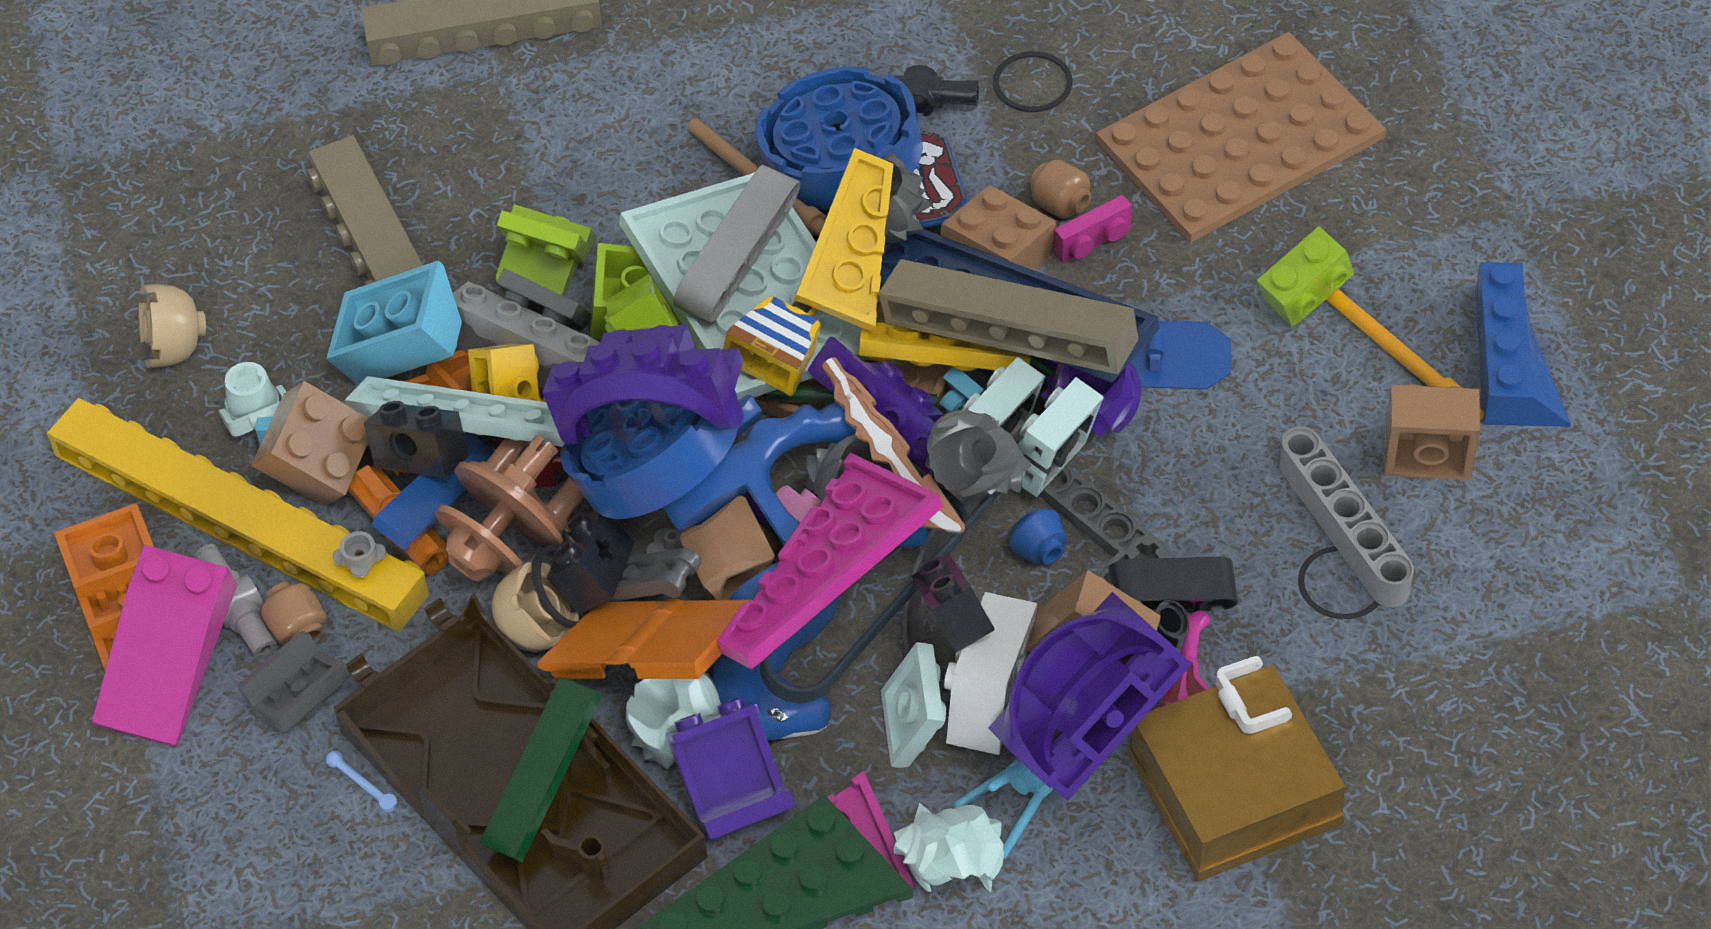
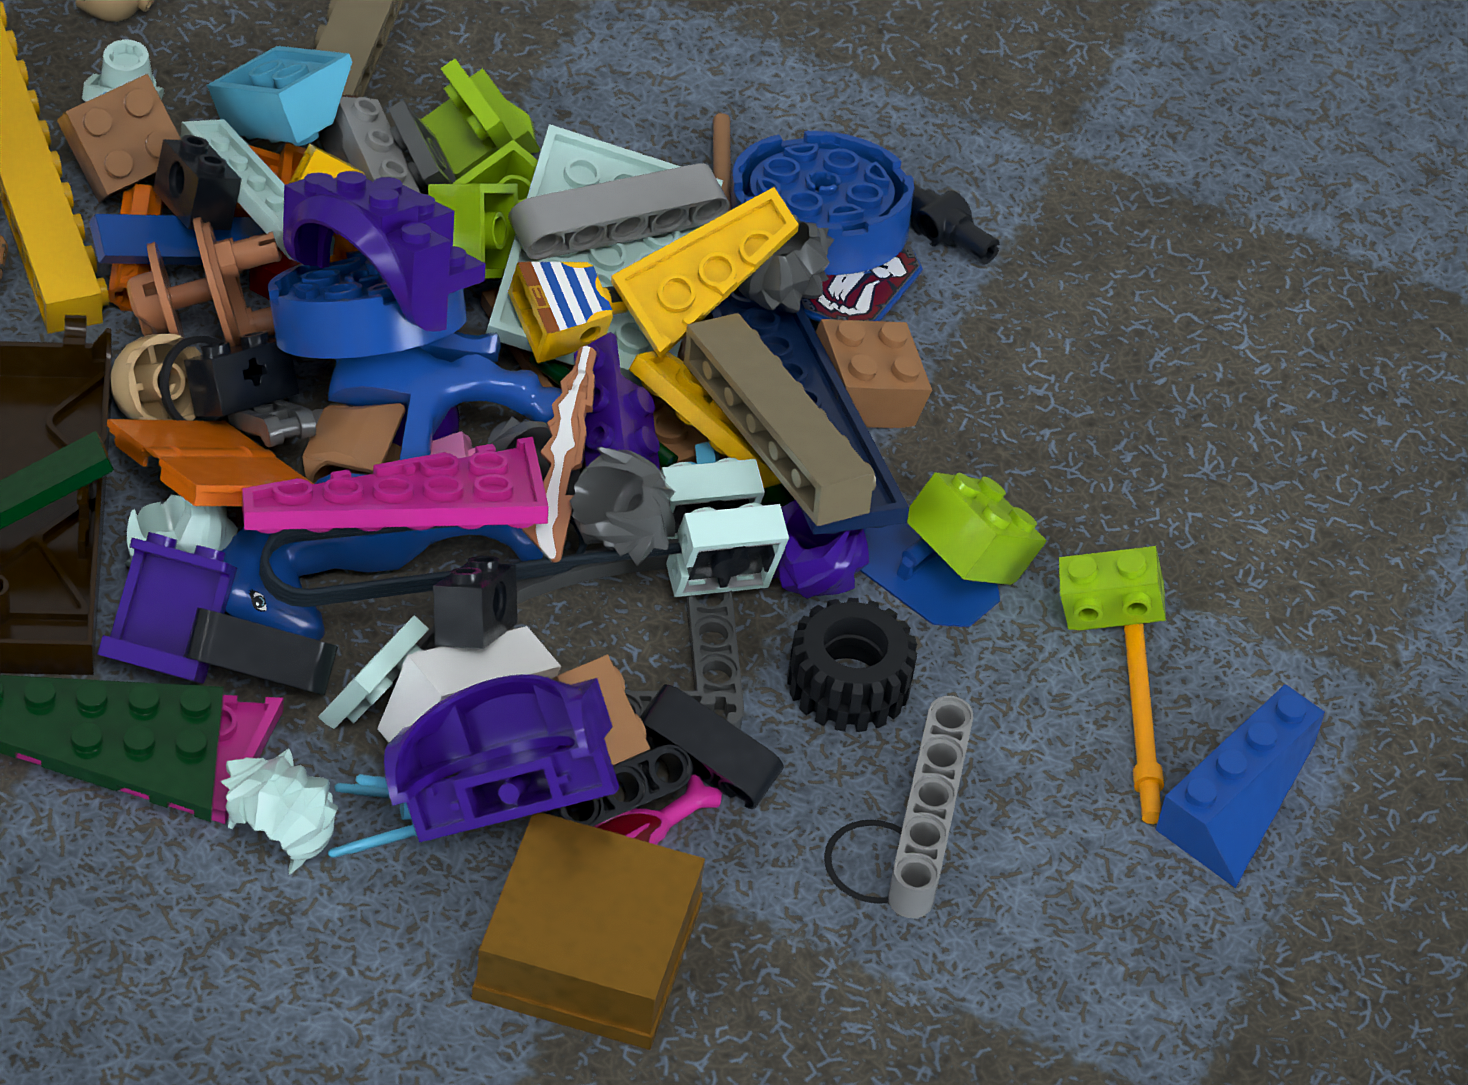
camera: 30 degrees right, 5 degrees down
(355, 544) = (62, 239): light grey plate -> none
(820, 749) = (260, 651): none -> black beam
(1007, 101) = (1058, 310): black piece -> none
(1039, 537) = (640, 627): blue cone -> none
(1060, 189) = (975, 371): medium nougat head -> none
(1093, 228) = (969, 425): dark pink plate -> none
(1186, 298) = (975, 528): none -> lime brick
(1197, 482) = (845, 692): none -> black tyre
(1235, 705) = (631, 857): white piece -> none
(1240, 136) = (1197, 446): medium nougat plate -> none
(1431, 432) = (1079, 788): medium nougat brick -> none

